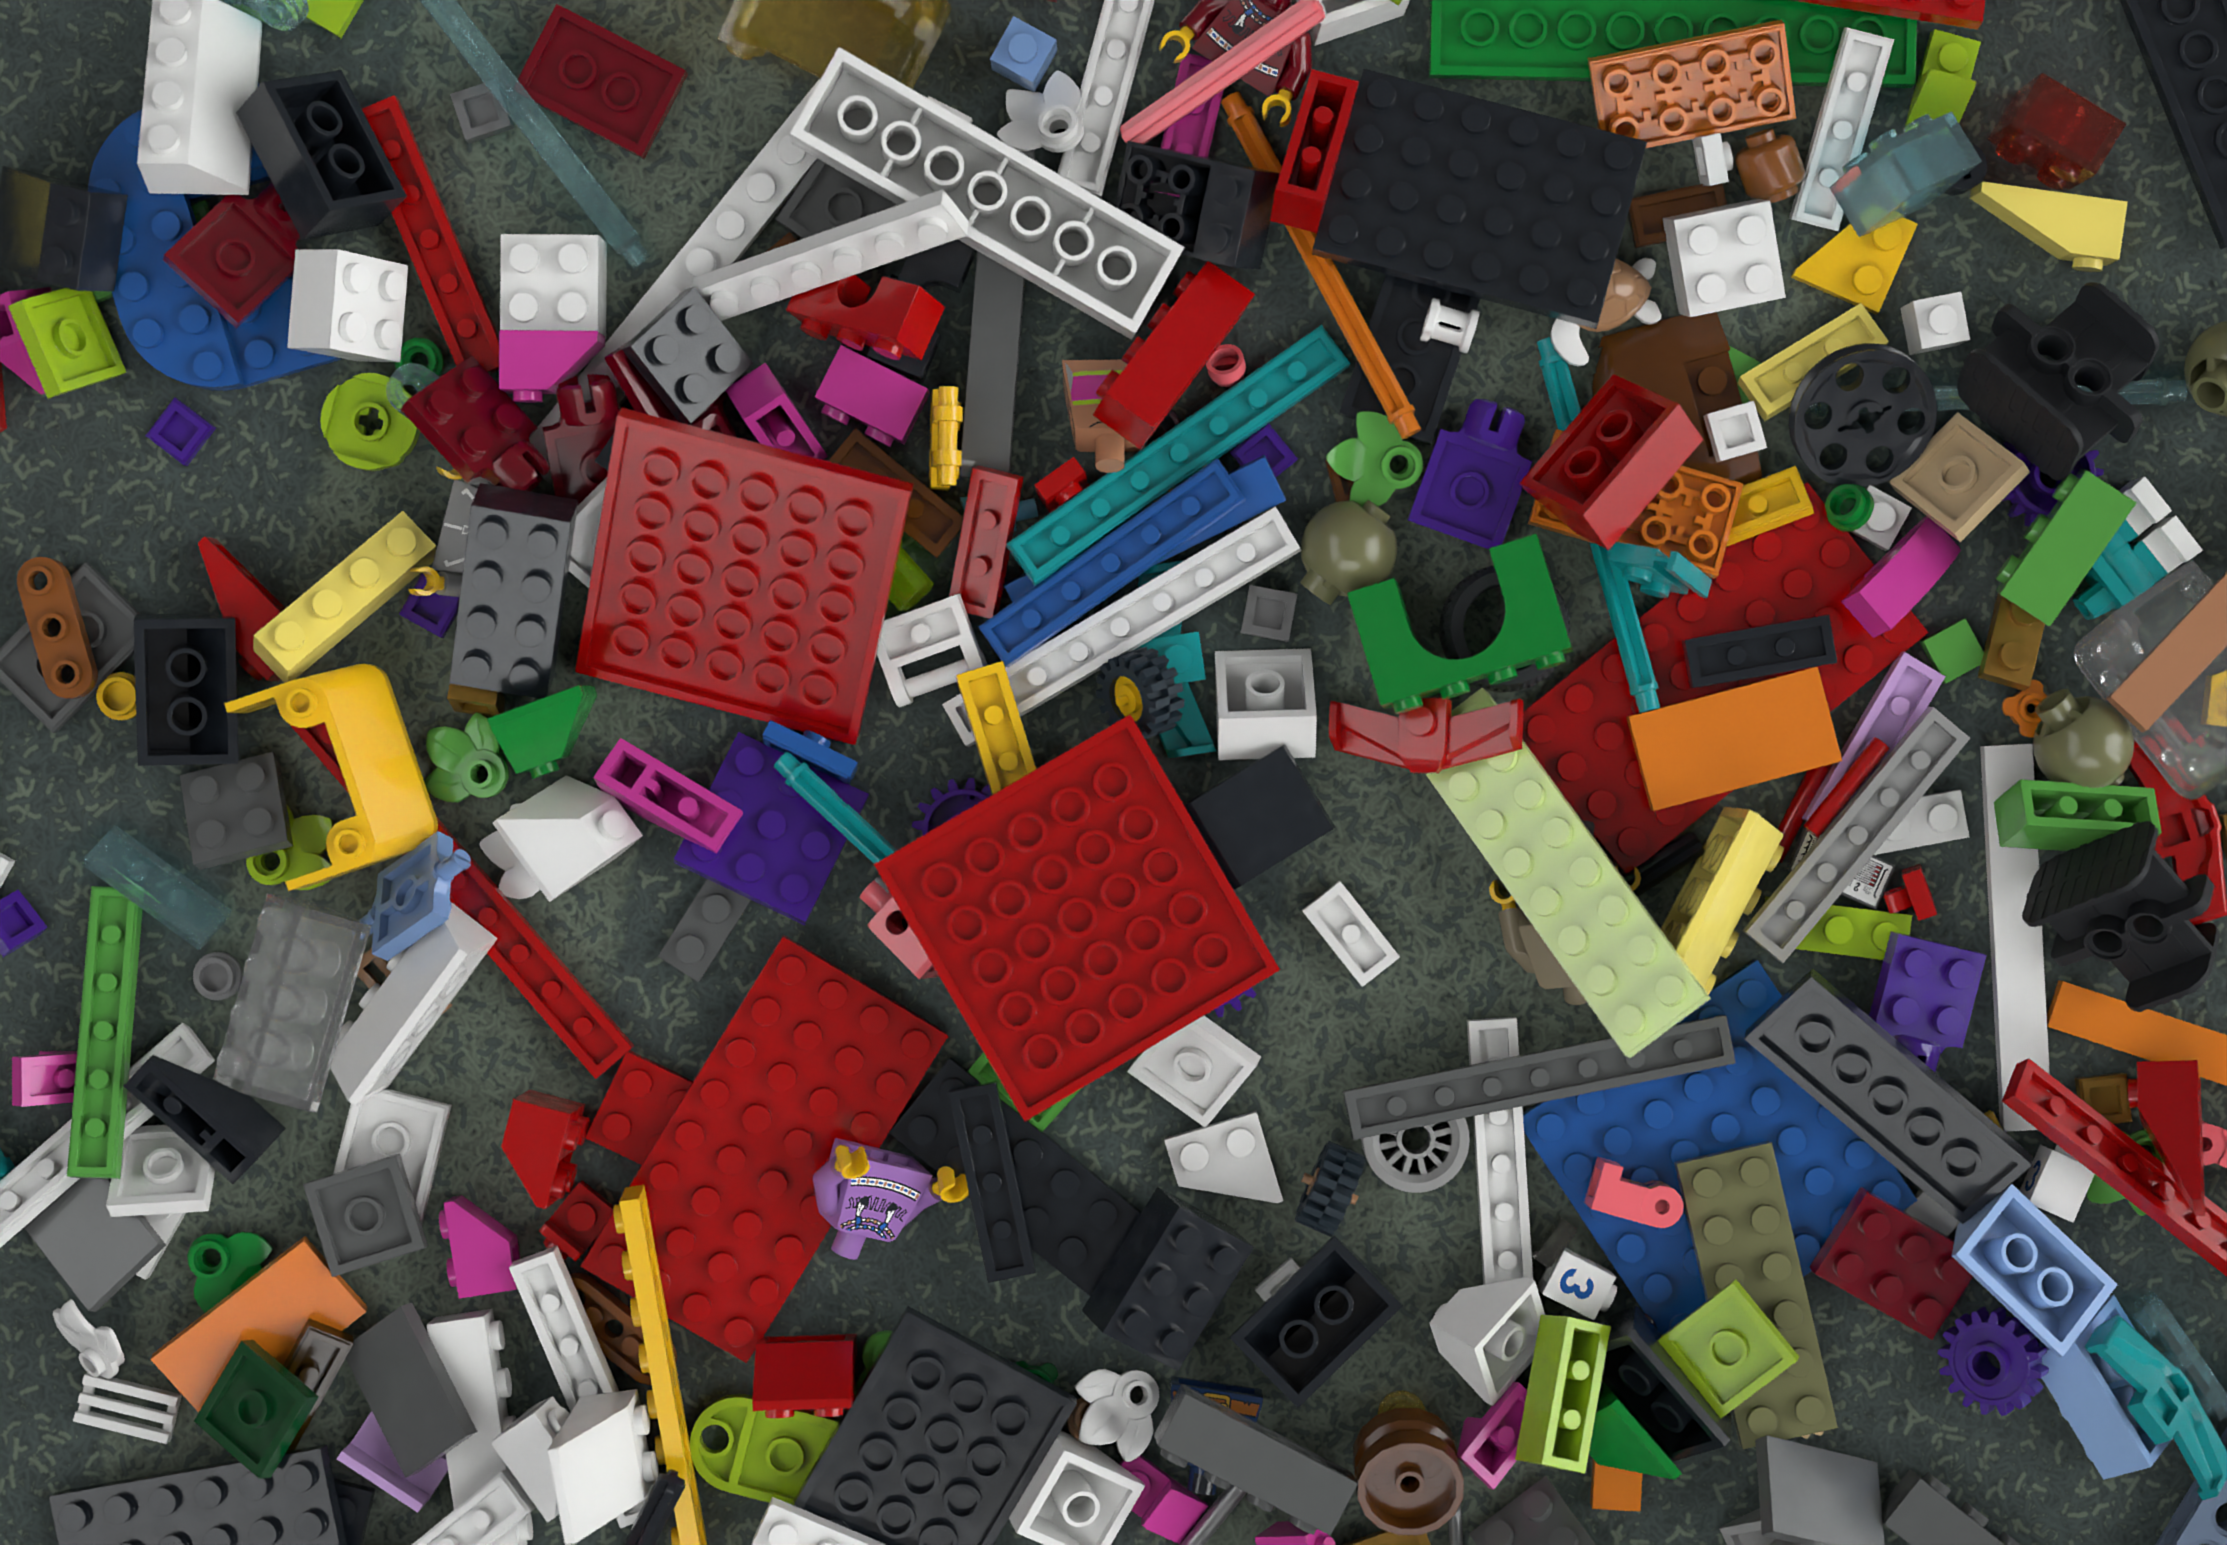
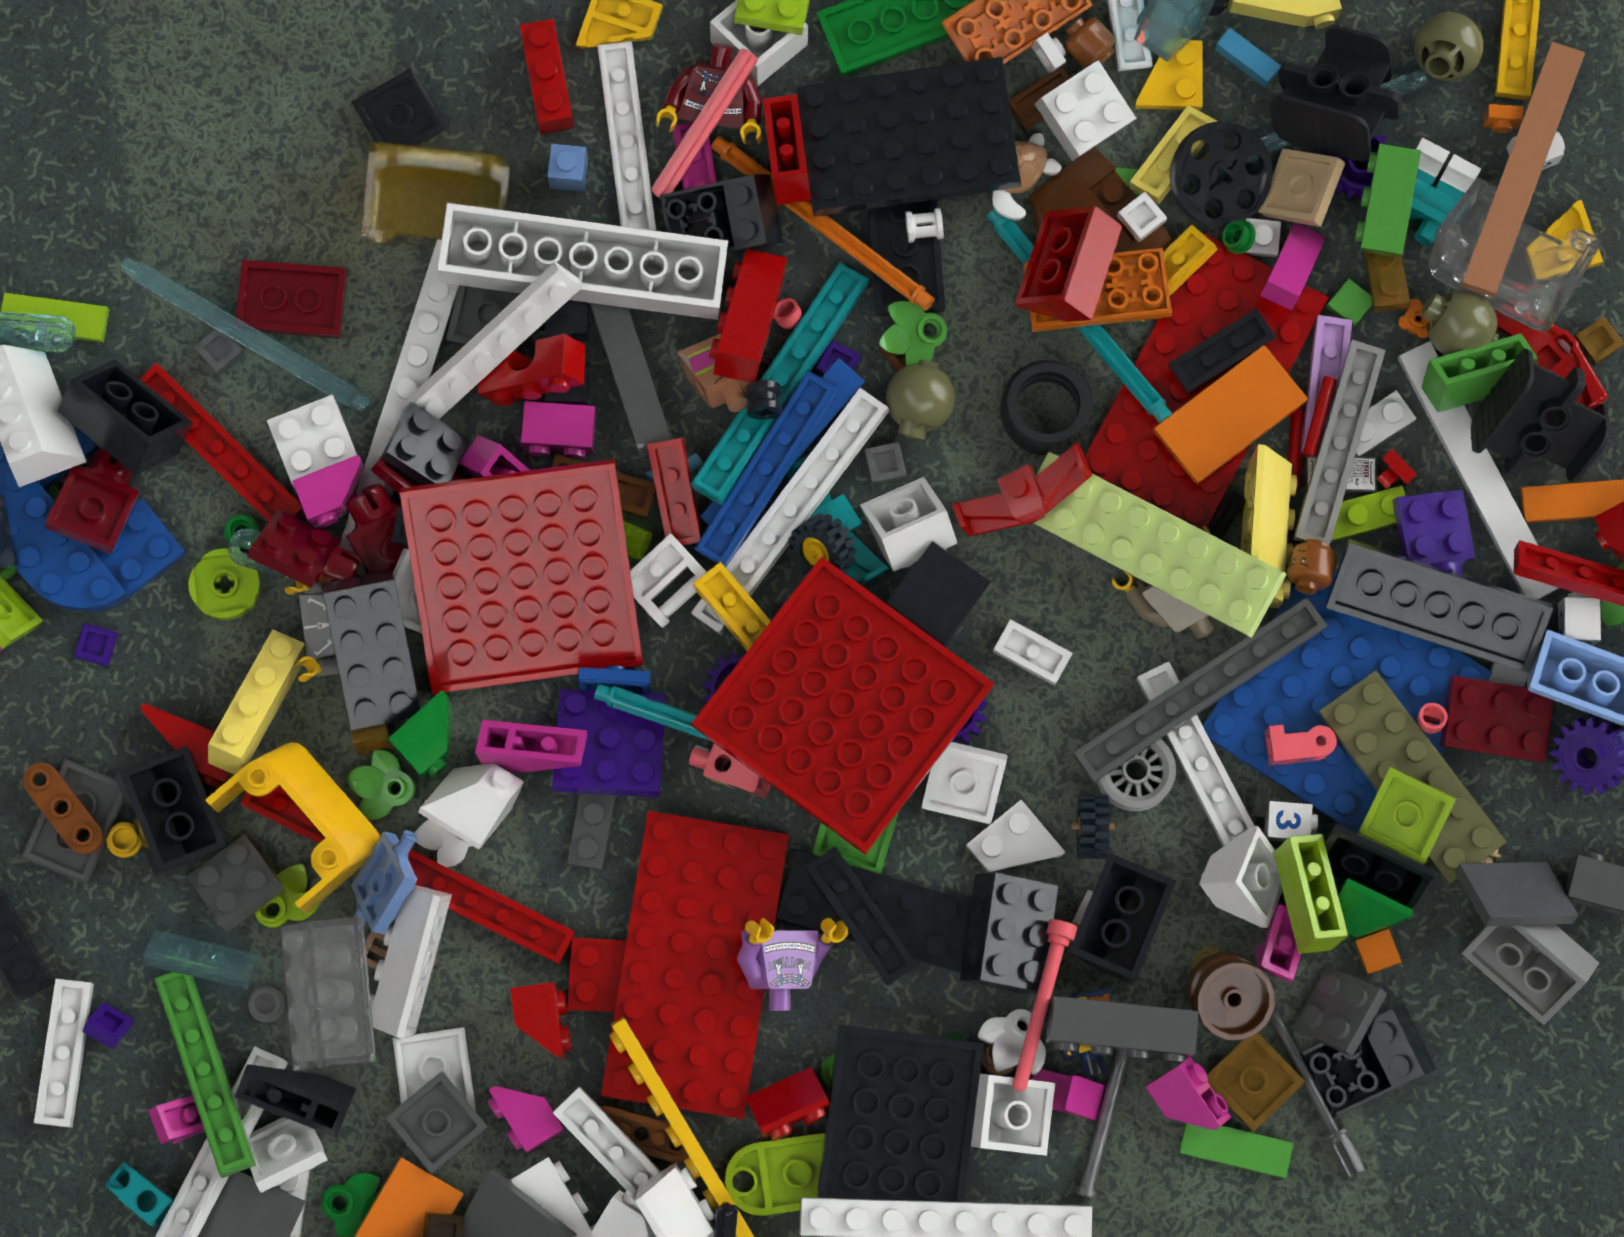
camera: 25 degrees left, 10 degrees down
(347, 305) = (181, 509): white brick -> none
(432, 611) = (316, 692): dark purple tile -> none
(577, 1222) = (585, 1068): red bracket -> none
(945, 423) = (618, 435): yellow plate -> none
(1039, 115) = (595, 203): white plate -> none
(1062, 485) = (710, 432): red bracket -> none
(1144, 474) = (763, 399): none -> black wheel
(1226, 1316) = (1060, 935): none -> coral piece
(1473, 477) = (983, 319): dark purple plate -> none
(1530, 633) = (998, 455): green arch -> none
(1658, 572) = (1131, 325): teal plate -> none
(1750, 979) = (1311, 566): none -> dark orange head
(1819, 1225) = (1432, 713): none -> coral hinge
(1935, 323) = (1242, 97): white brick -> none
(1966, 270) = (1247, 57): none -> dark azure piece
(2106, 1095) = (1587, 548): pearl gold tile -> none

